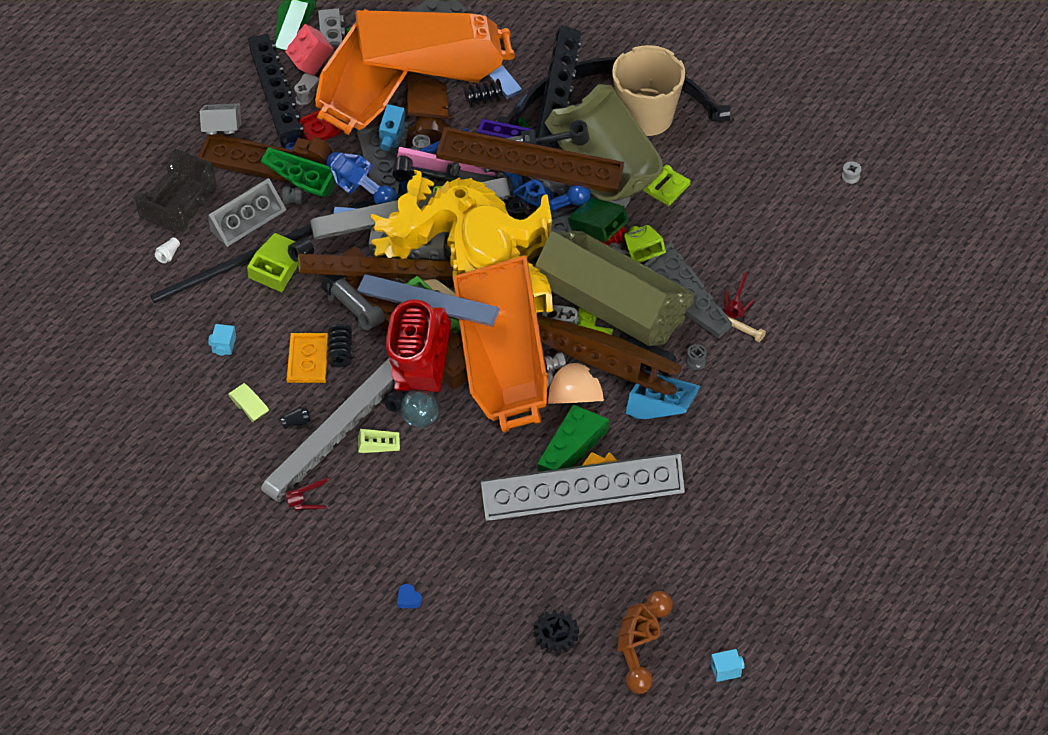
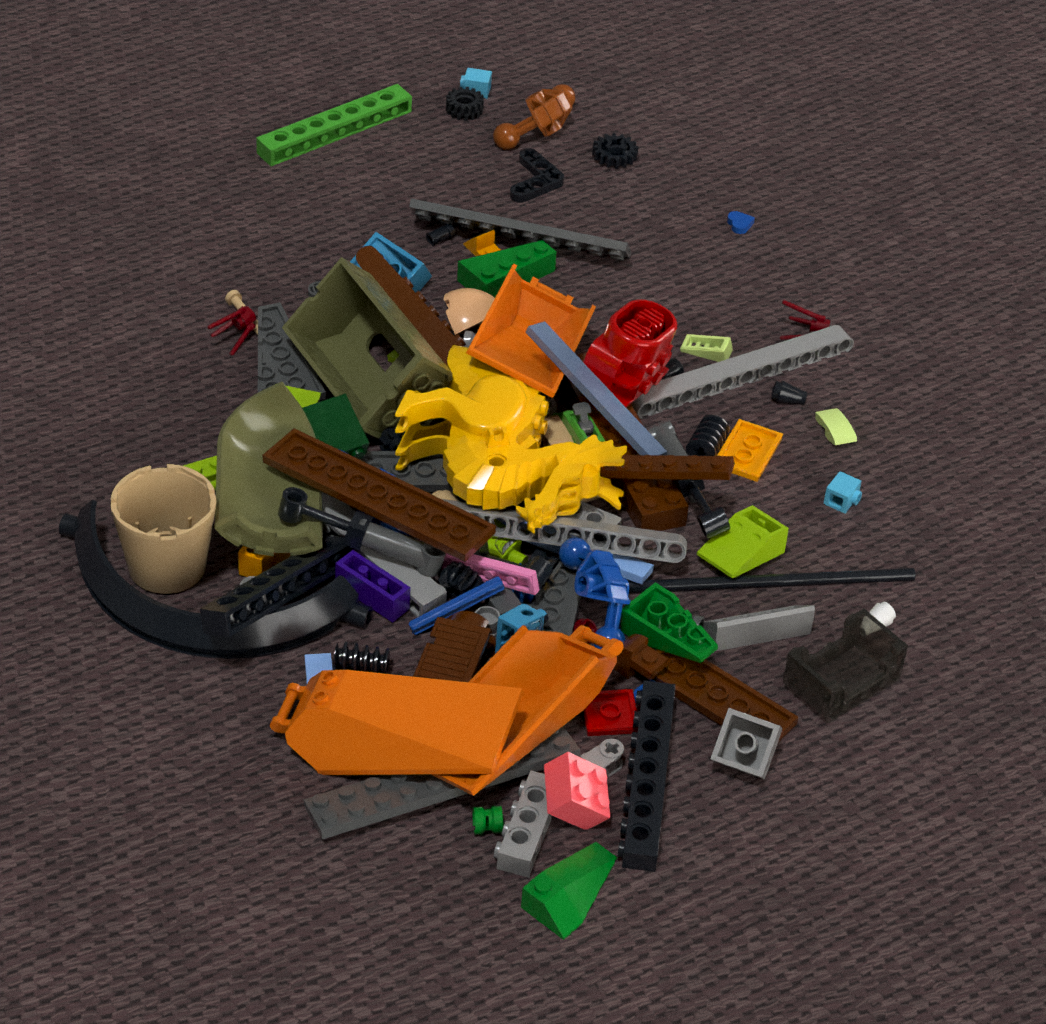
camera: 160 degrees left, 10 degrees down
(601, 572) = (547, 179): none -> black beam
(721, 623) = (464, 103): none -> black tyre
(840, 495) = (333, 124): none -> bright green brick

